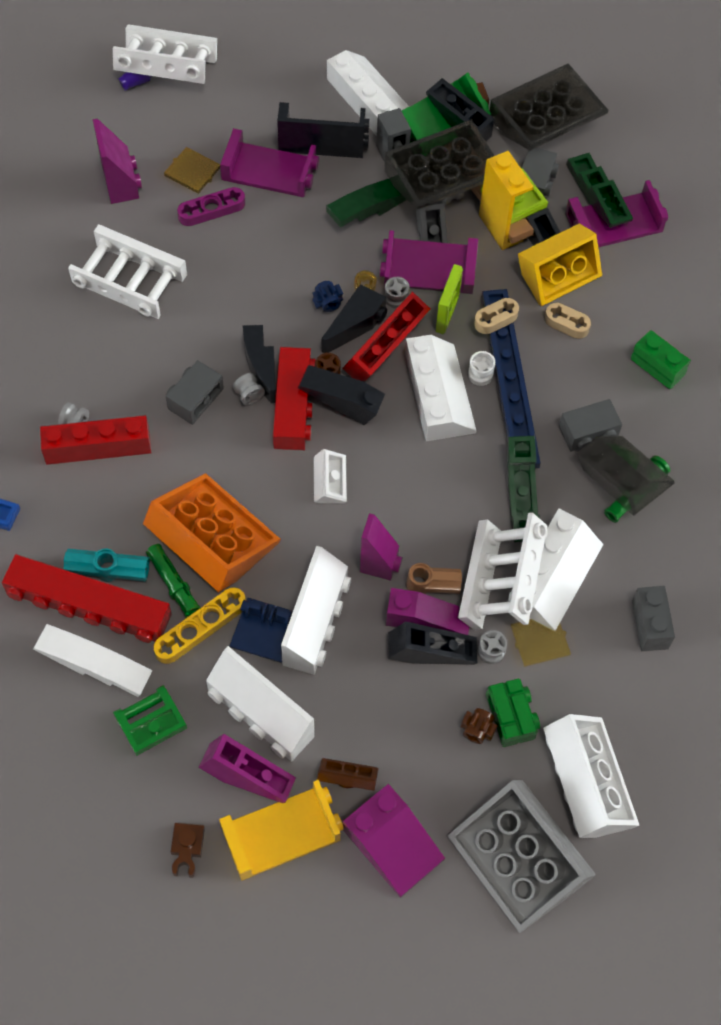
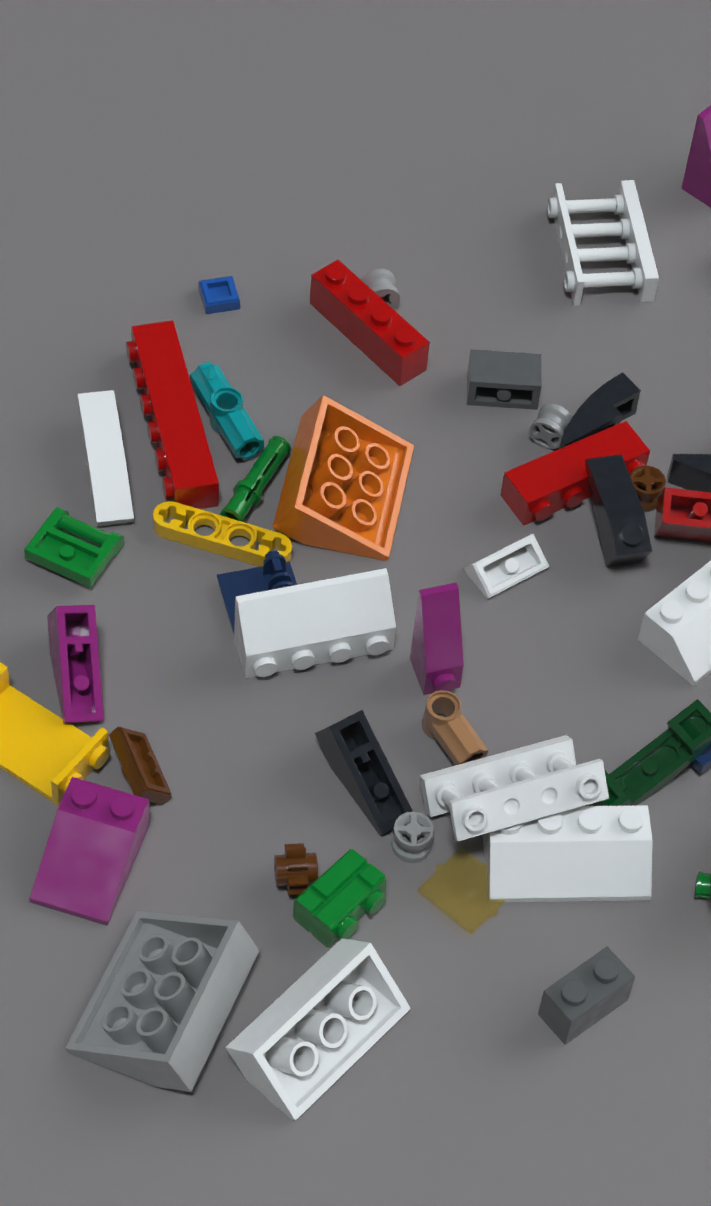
camera: 55 degrees right, 10 degrees down
(260, 705) = (159, 634): white slope -> none
(423, 610) = (400, 737): magenta slope -> none

